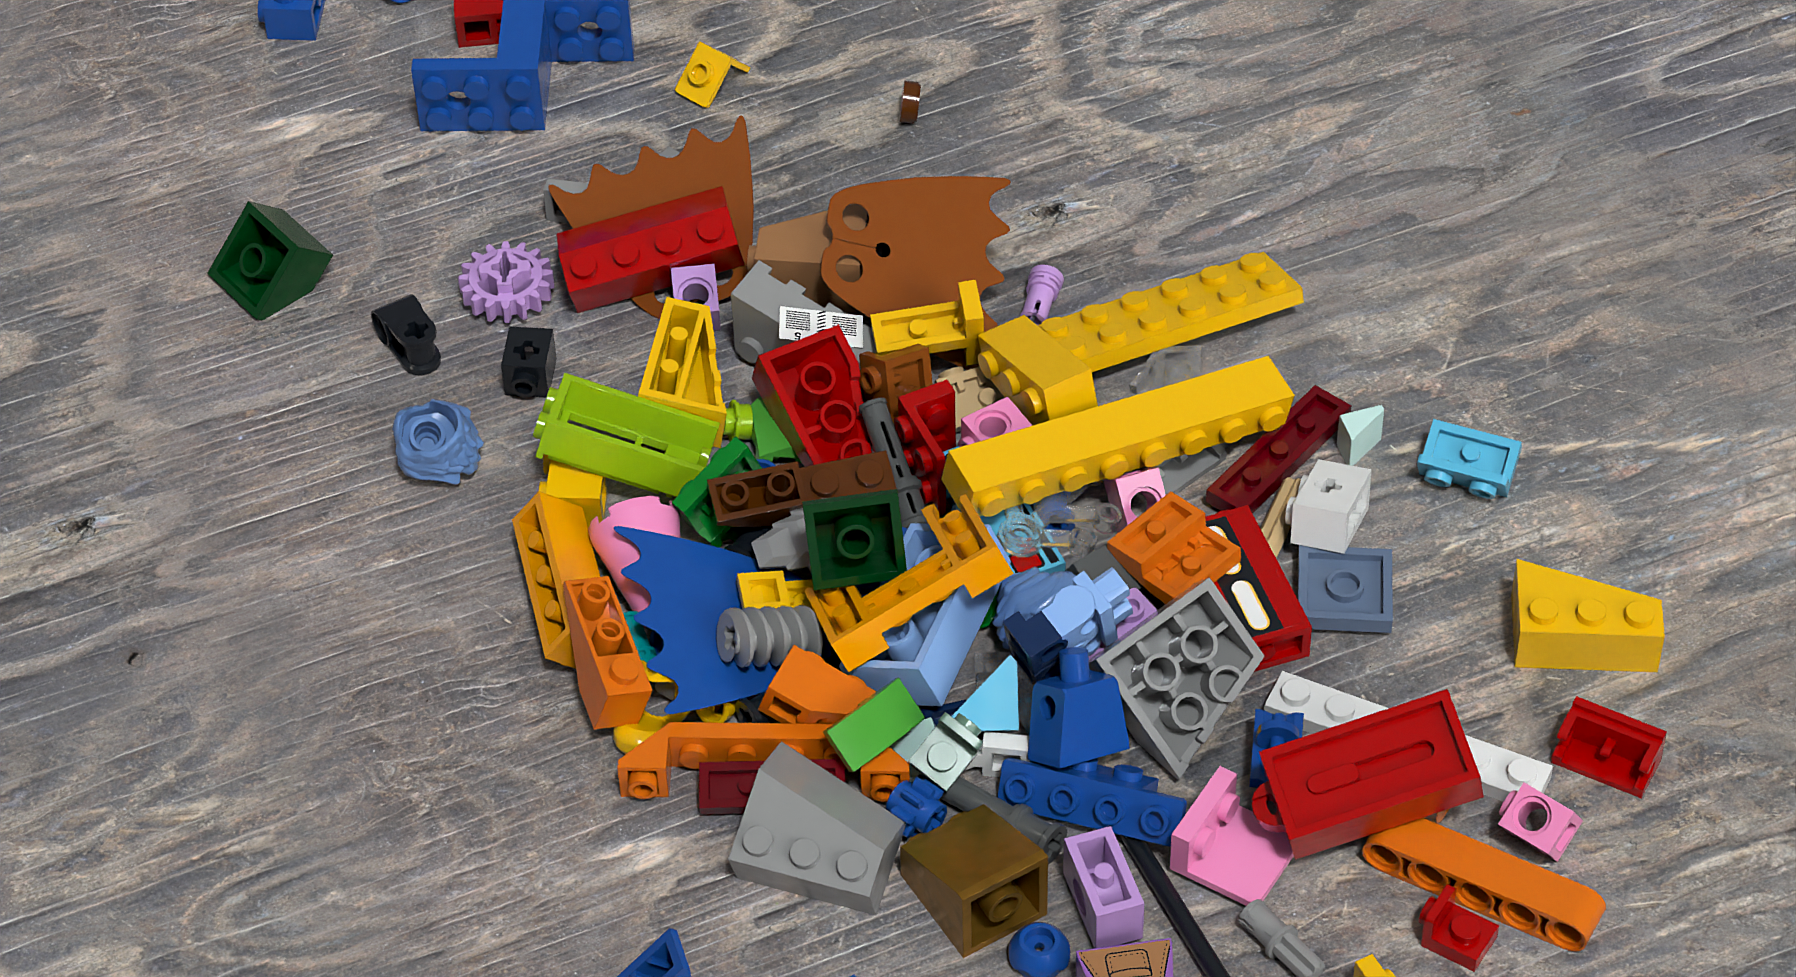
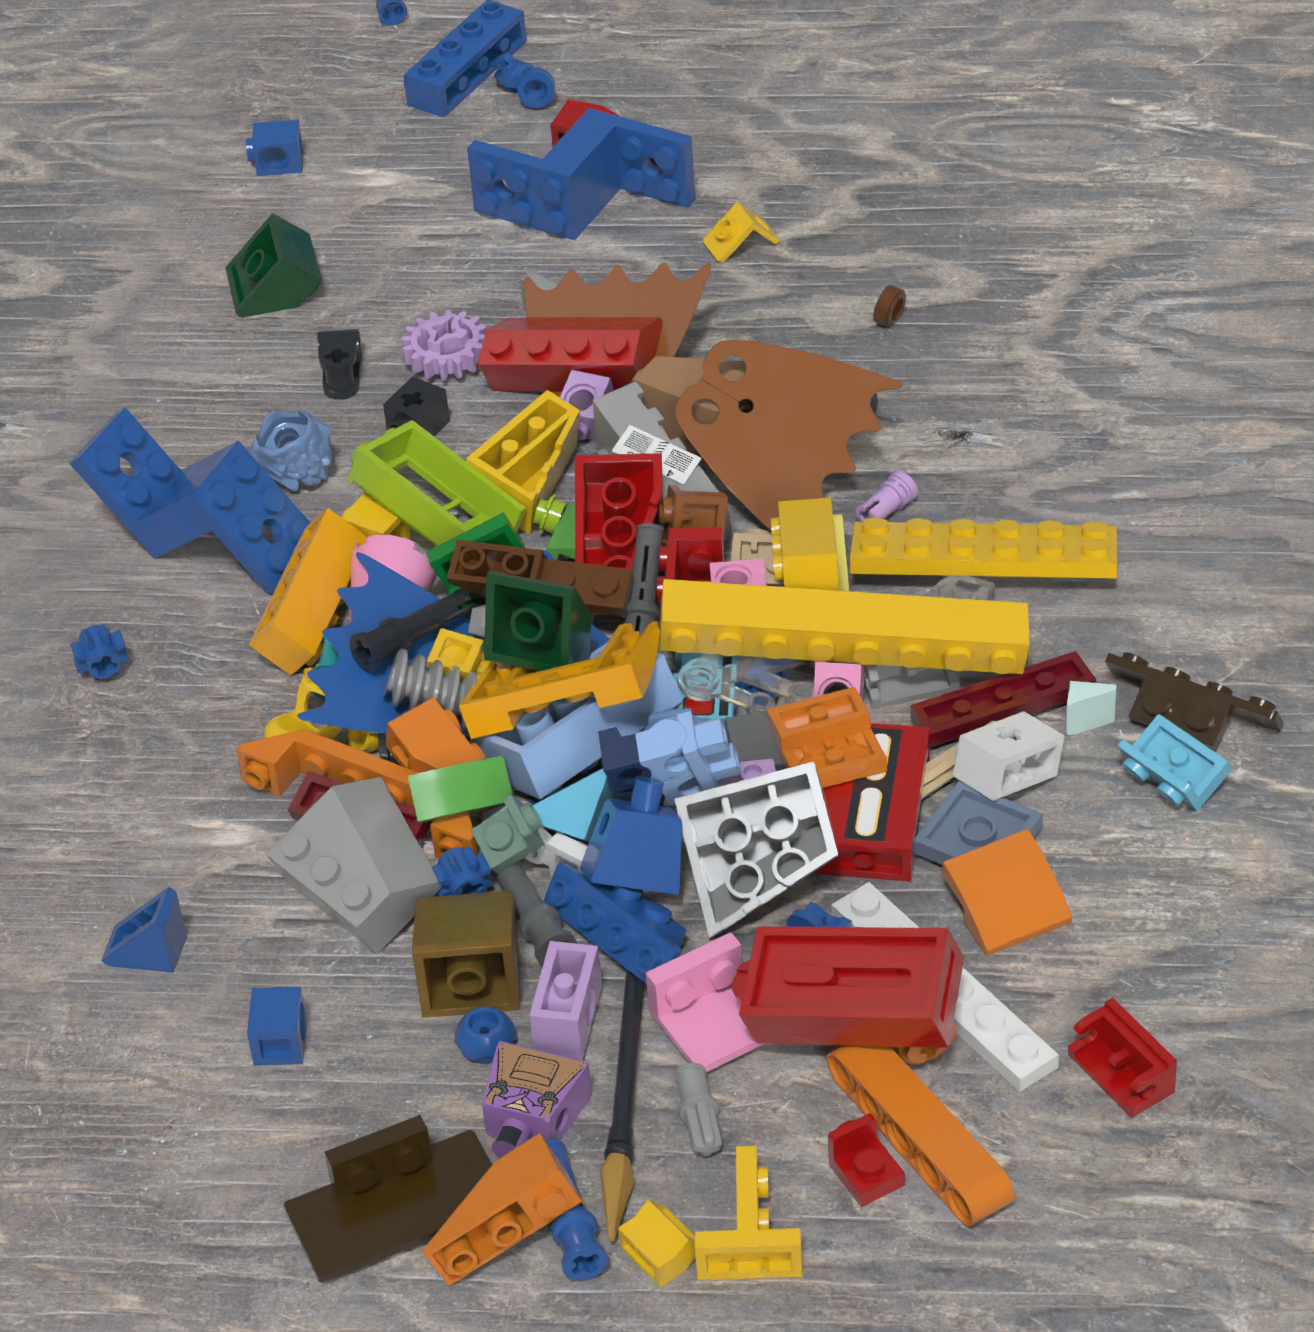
camera: 30 degrees right, 5 degrees down
(173, 127) = (276, 147): none -> blue brick
(389, 529) = (174, 506): none -> blue bracket
(392, 720) = (99, 651): none -> blue gear
(604, 654) = (284, 652): orange slope -> none
(706, 596) = (396, 633): none -> black pin
(936, 326) = (750, 484): yellow bracket -> none
(1410, 634) = (1007, 892): none -> orange slope
(1453, 399) = (1188, 705): none -> dark brown bracket
(1553, 836) = (1017, 1105): bright pink brick -> none
(1582, 623) = (1173, 940): yellow wedge -> none

